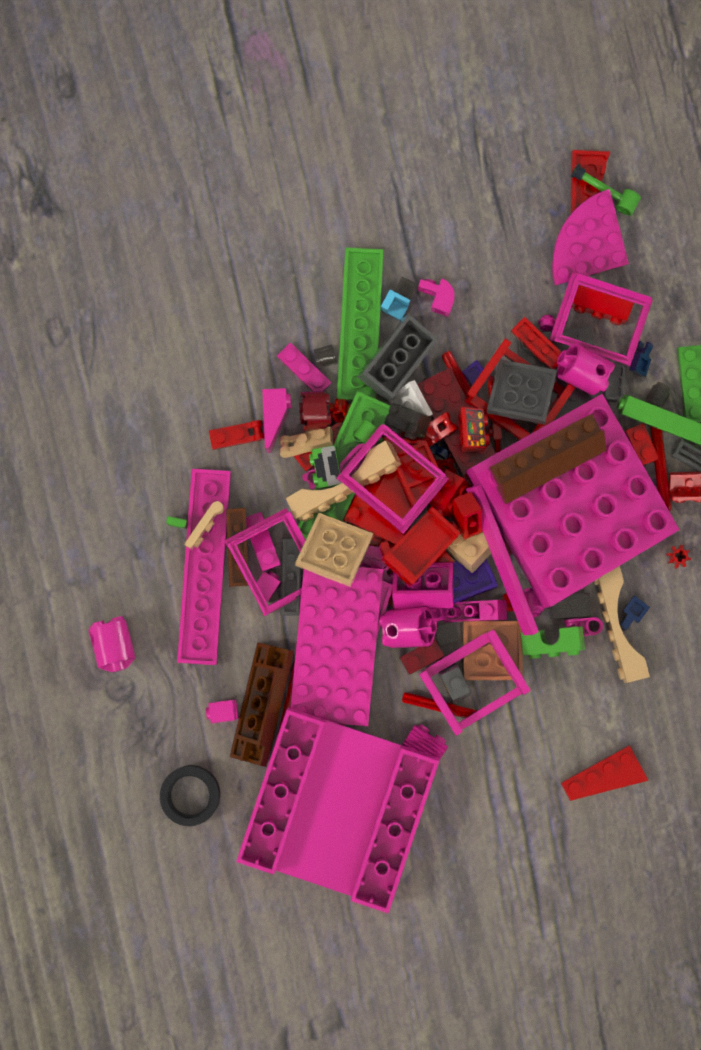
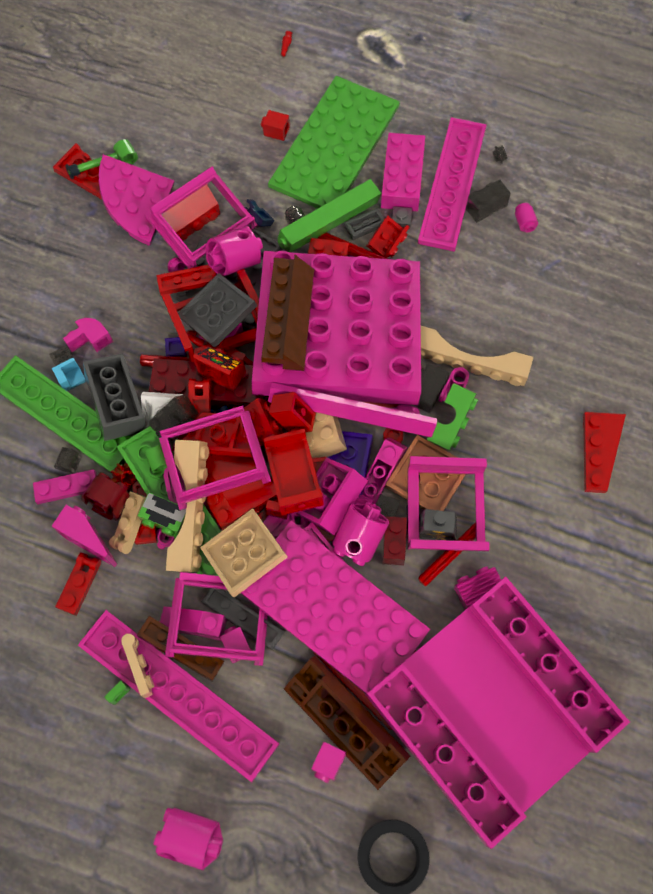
camera: 55 degrees left, 15 degrees down
(634, 611) = (467, 339): dark blue plate -> none
(683, 554) = (441, 279): red gear -> none

